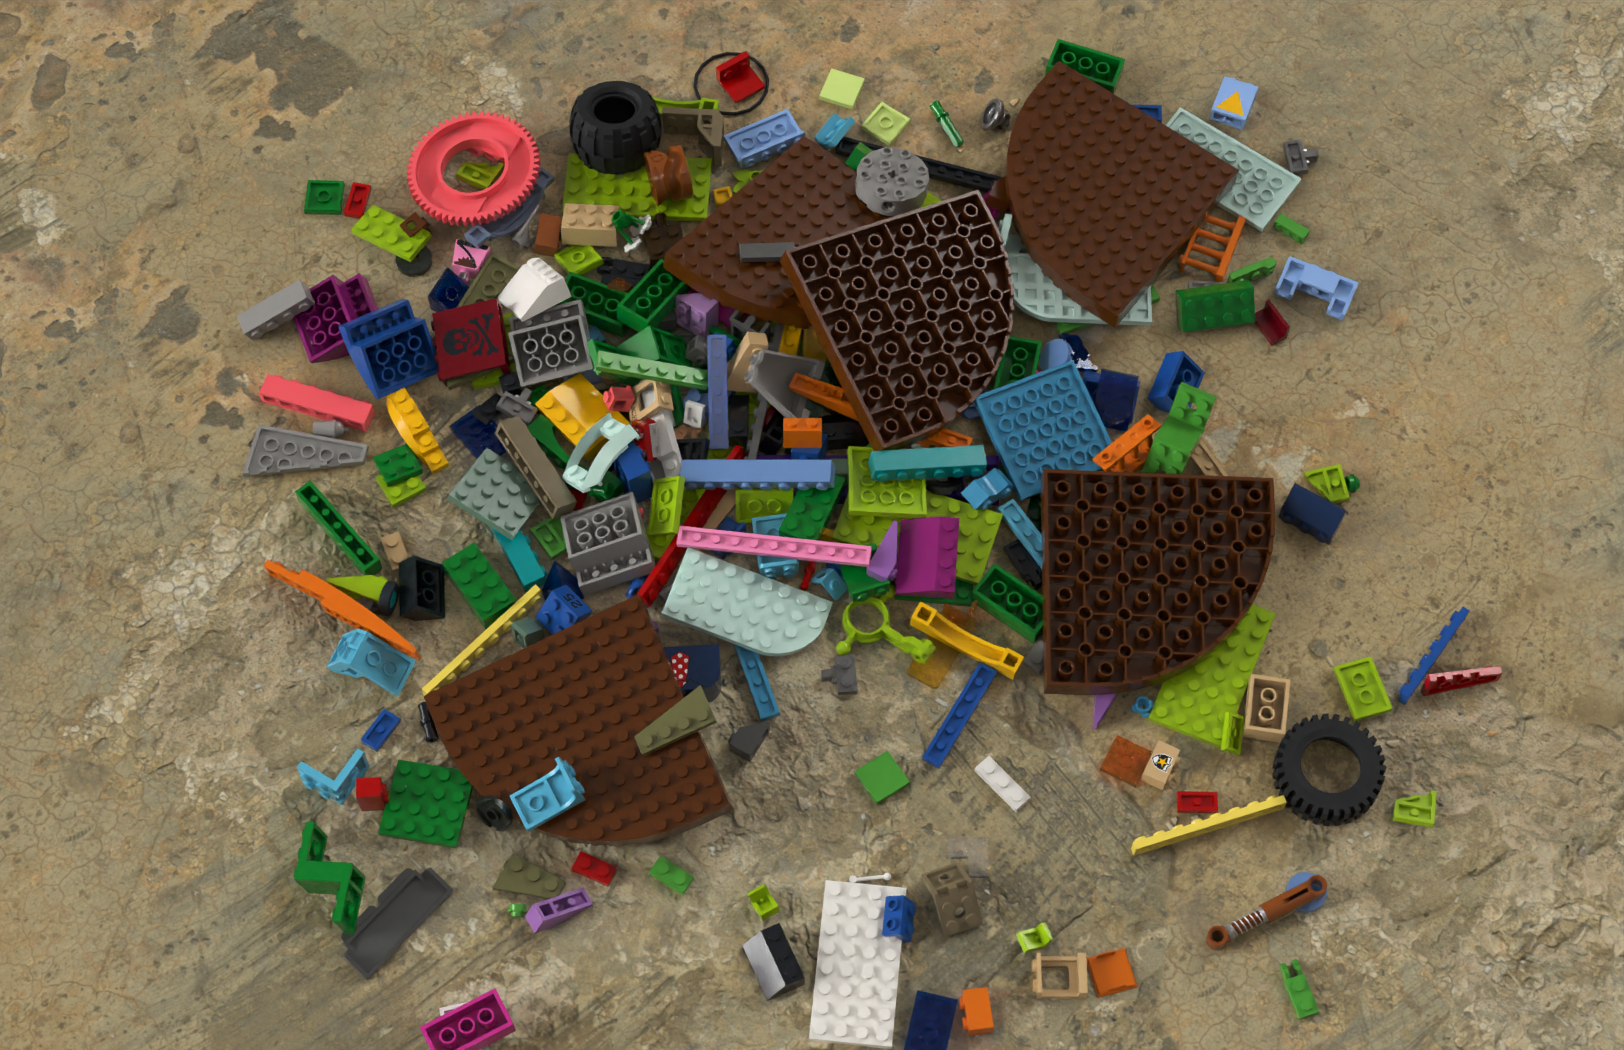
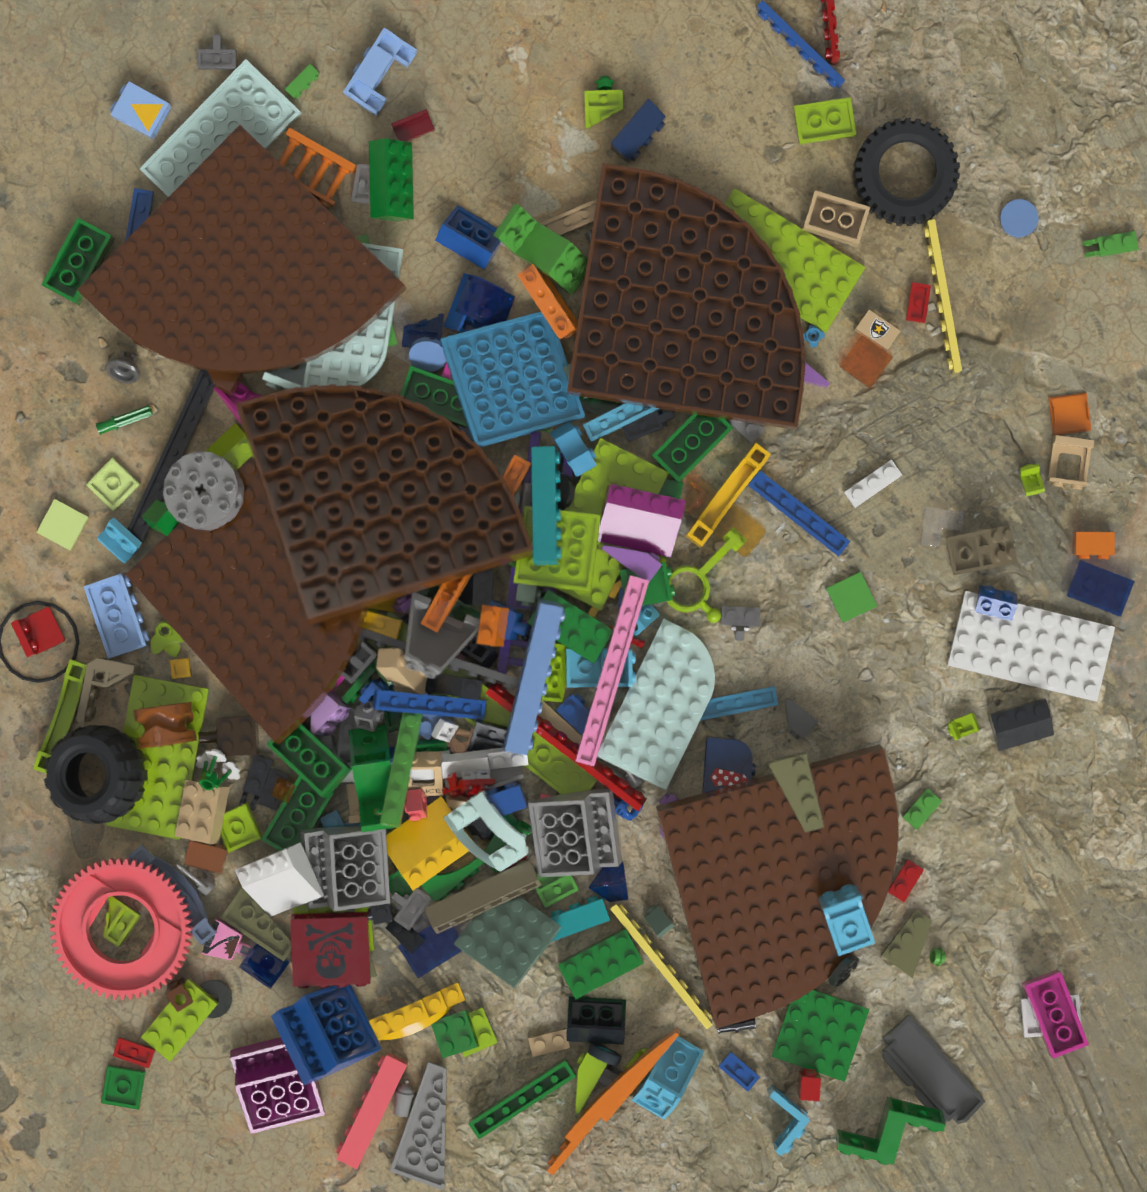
camera: 85 degrees left, 25 degrees up
(276, 310) = (264, 1146): light grey brick -> none
(557, 909) = (943, 918): medium lavender slope -> none
(562, 610) = (648, 884): blue brick -> none
(666, 506) = (549, 771): lime plate -> none
(763, 251) = (284, 634): dark grey tile -> none
(853, 879) = (948, 639): white hinge -> none
(1230, 732) = (854, 255): lime tile -> none
(1253, 271) = (351, 132): bright green hinge -> none
(1269, 911) = (1037, 257): dark orange piece -> none
(1416, 810) = (953, 97): lime wing -> none

